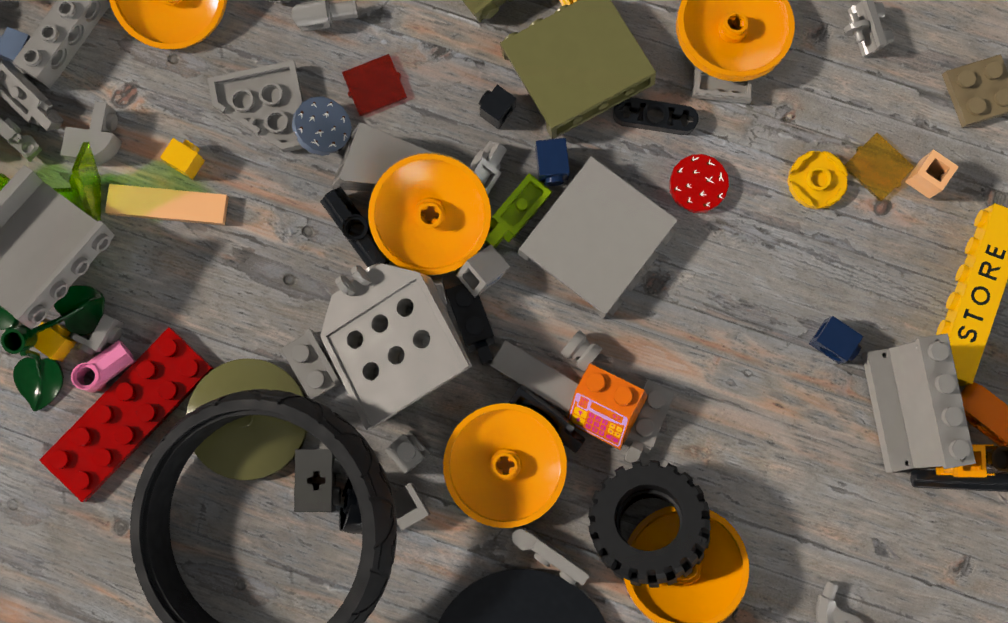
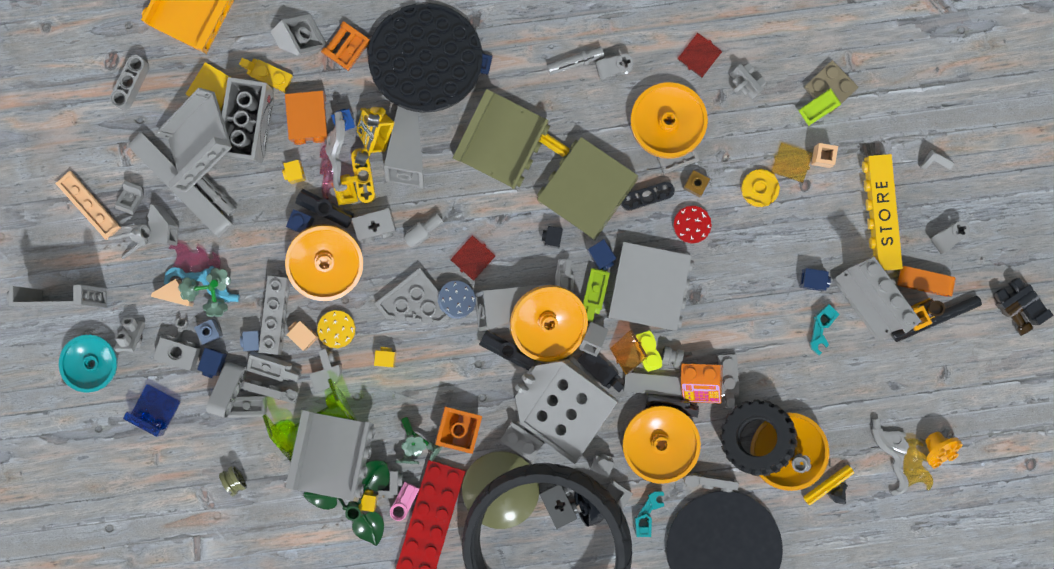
camera: 20 degrees left, 5 degrees up
(87, 73) = (302, 335): none -> light nougat brick
(139, 89) = (336, 329): none -> yellow tile
(157, 289) = (415, 444): none -> sand green plant
(166, 204) = (388, 389): light nougat tile -> none
(227, 301) = (458, 430): none -> orange slope
(448, 545) = (650, 504): none -> teal piece
(523, 312) = (628, 352): none -> clear orange piece
(550, 332) = (648, 343): none -> neon yellow brick
(687, 595) = (801, 468): none -> light grey plate
(728, 138) = (692, 188): none -> pearl gold plate
(802, 425) = (817, 335): none -> teal piece
(955, 107) = (819, 106): none -> lime tile

